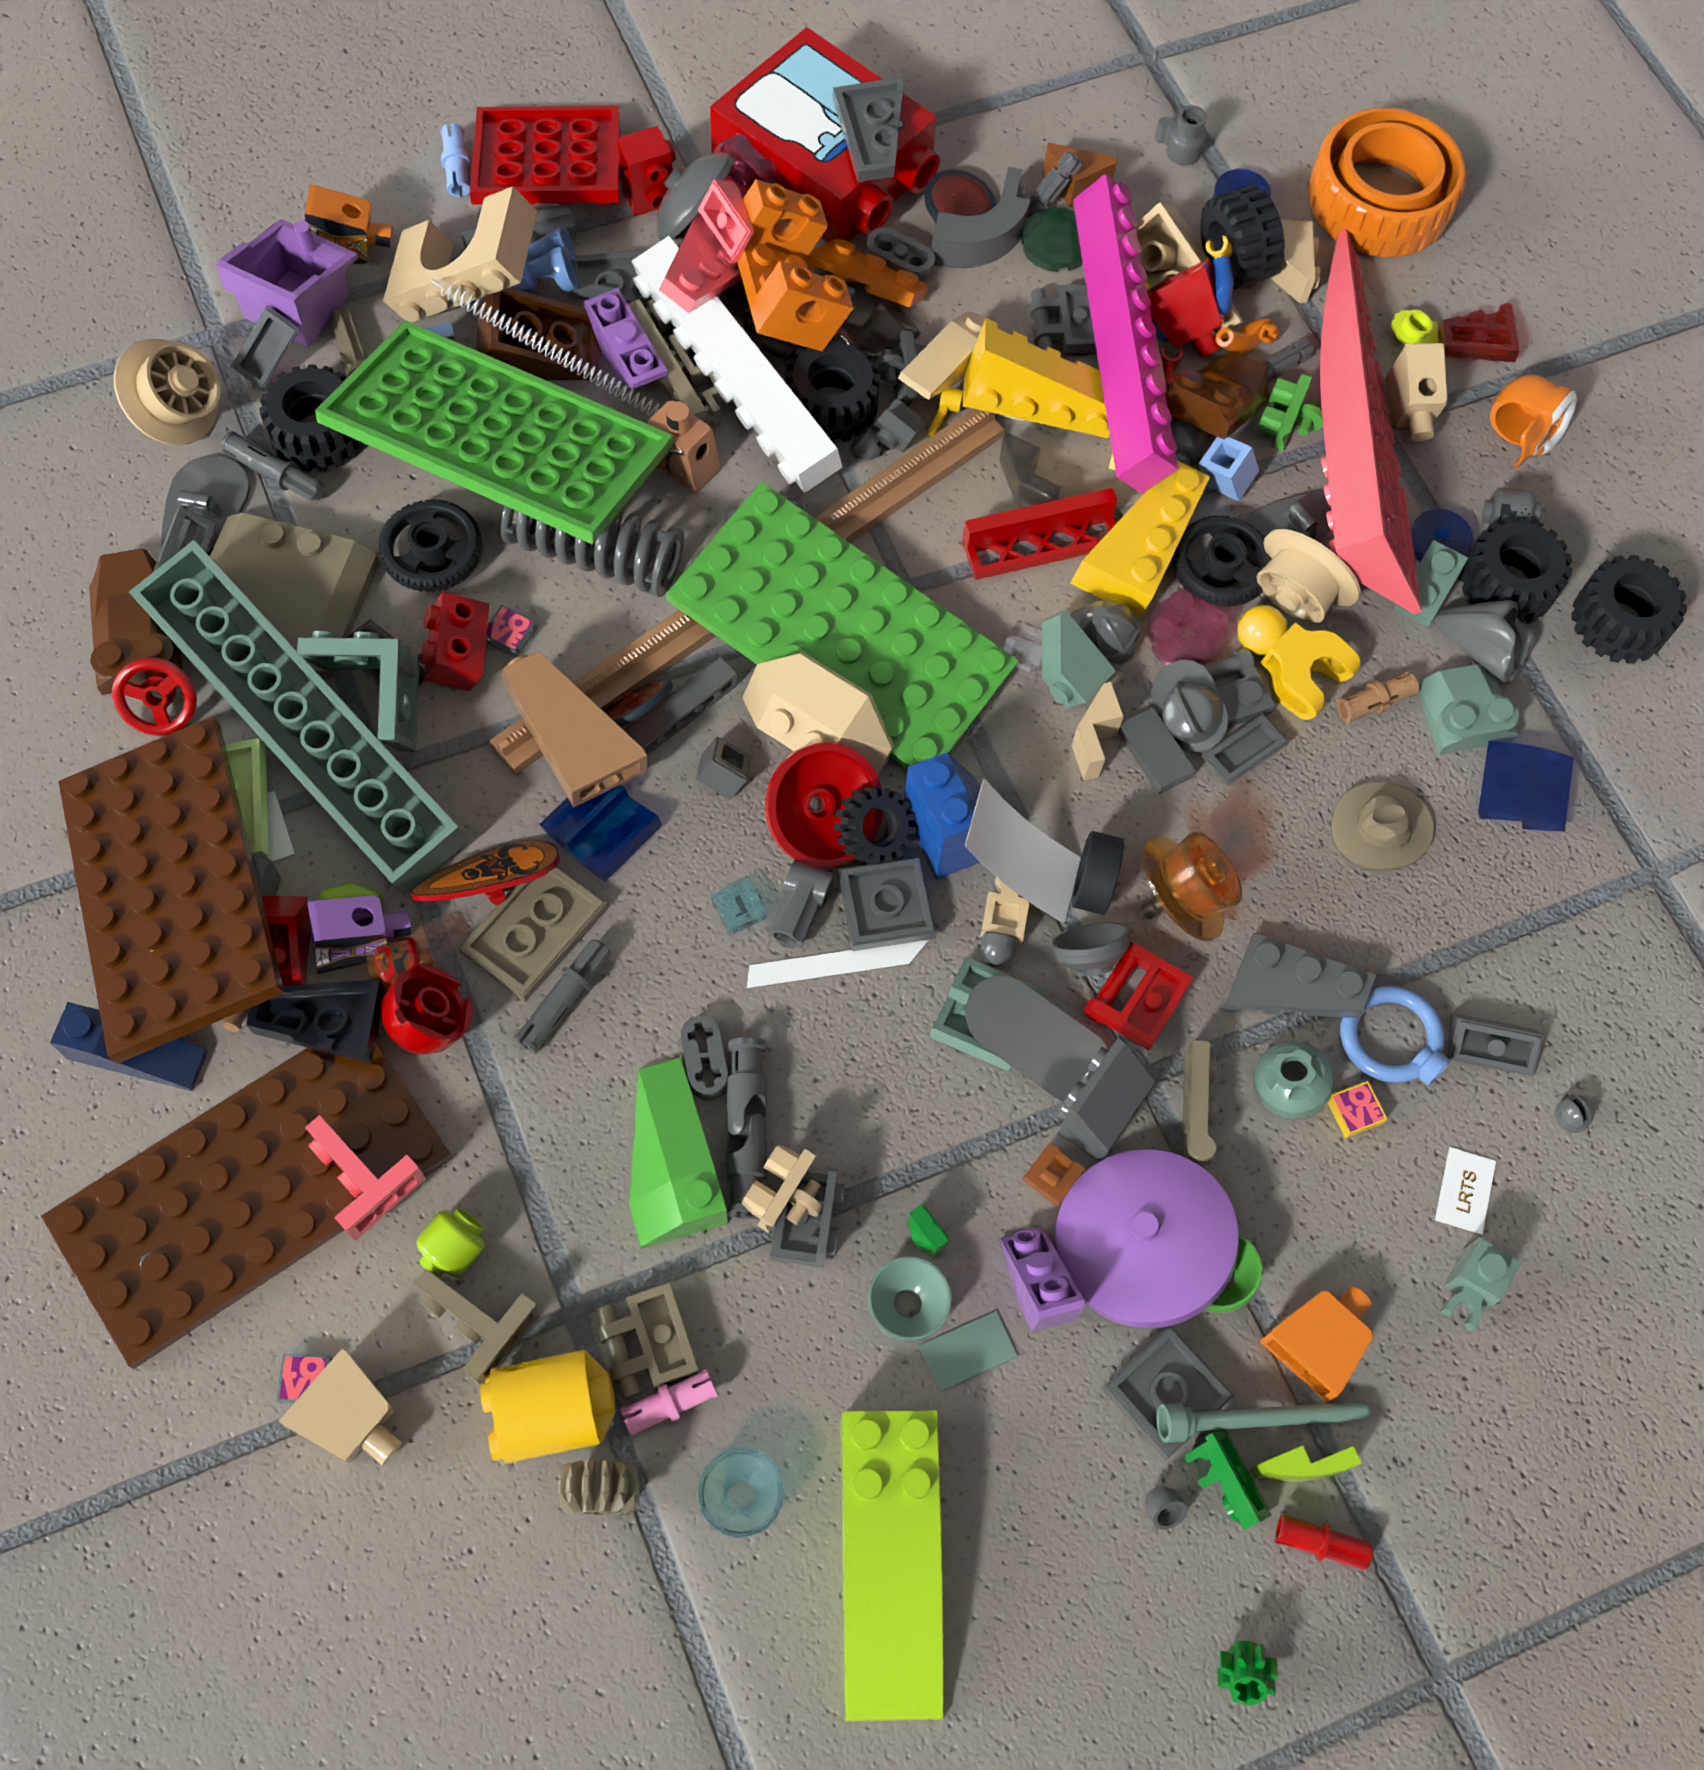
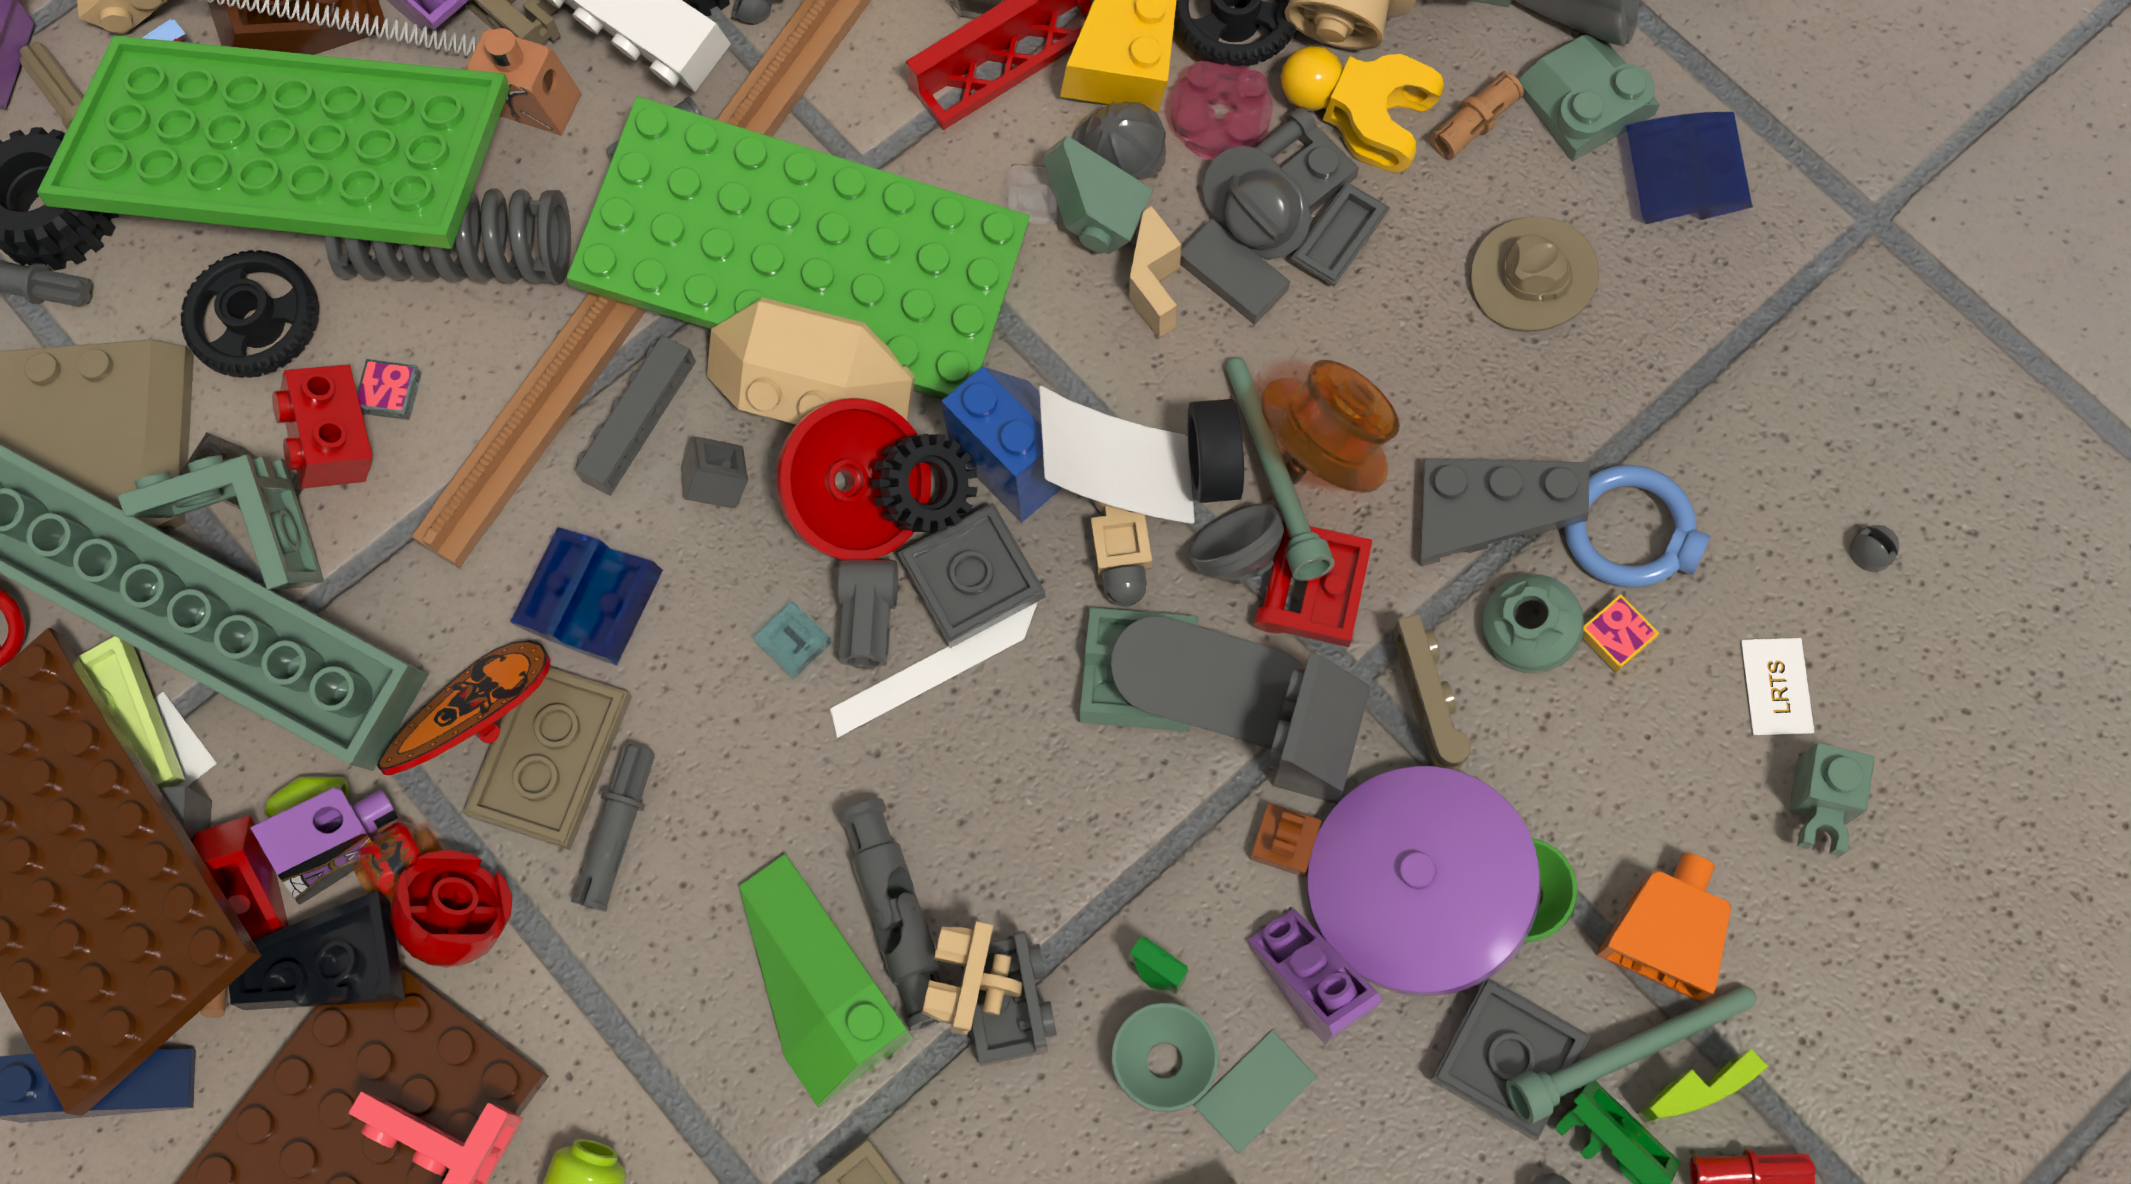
camera: 10 degrees left, 5 degrees up
(572, 732) = (512, 496): medium nougat slope -> none
(639, 701) = (576, 431): wheel -> none
(695, 1059) = (804, 851): dark grey beam -> none
(1141, 971) = (1307, 554): none -> sand green piece
(1494, 1044) = (1753, 496): dark grey slope -> none

